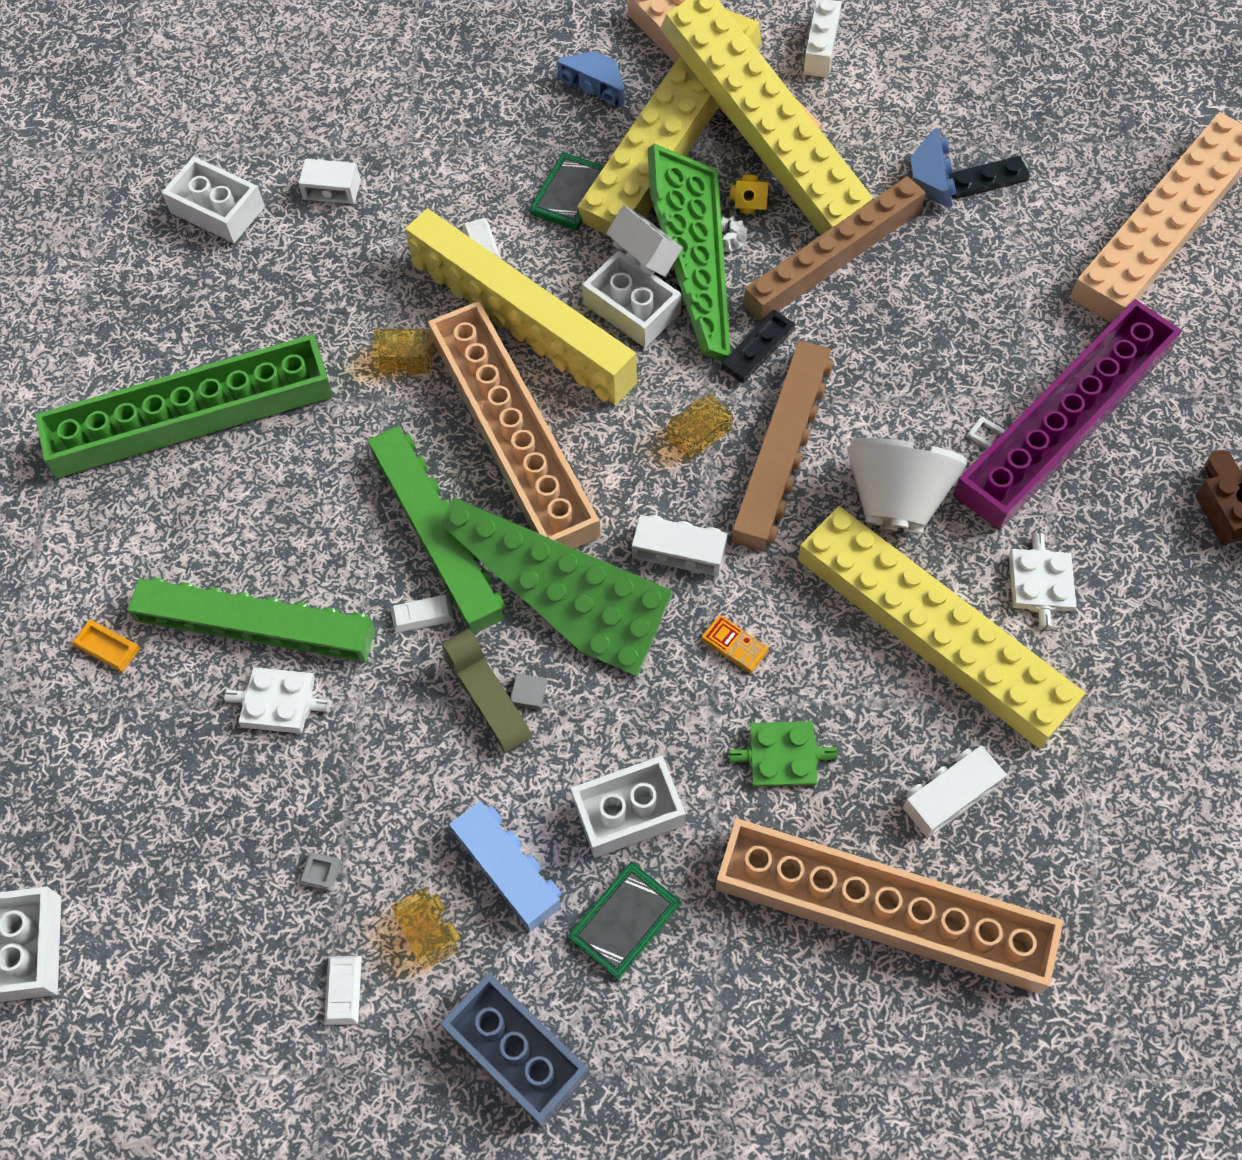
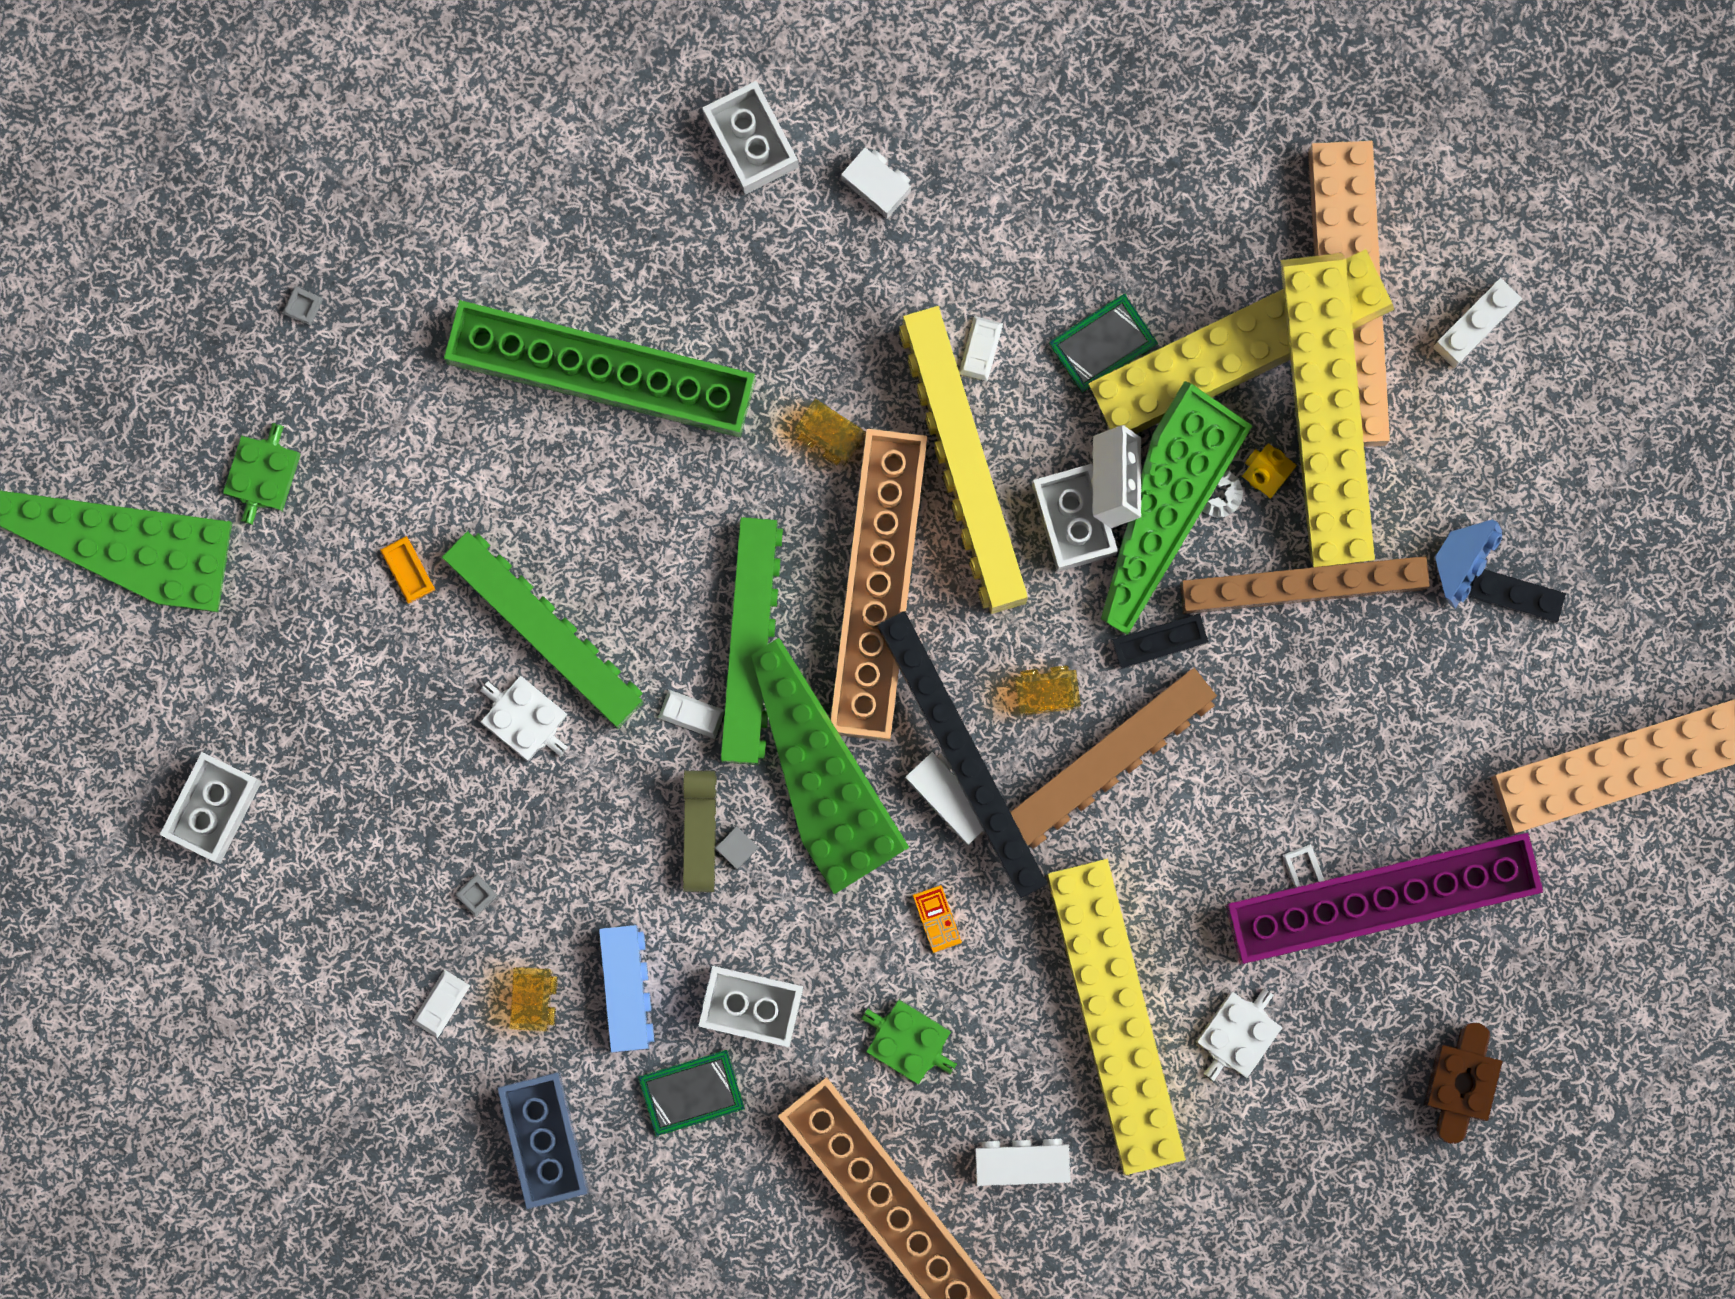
camera: 30 degrees right, 20 degrees up
(594, 75) = (1217, 220): medium blue slope -> none
(668, 498) = (962, 754): none -> black plate
(902, 483) = (1176, 874): white cone -> none

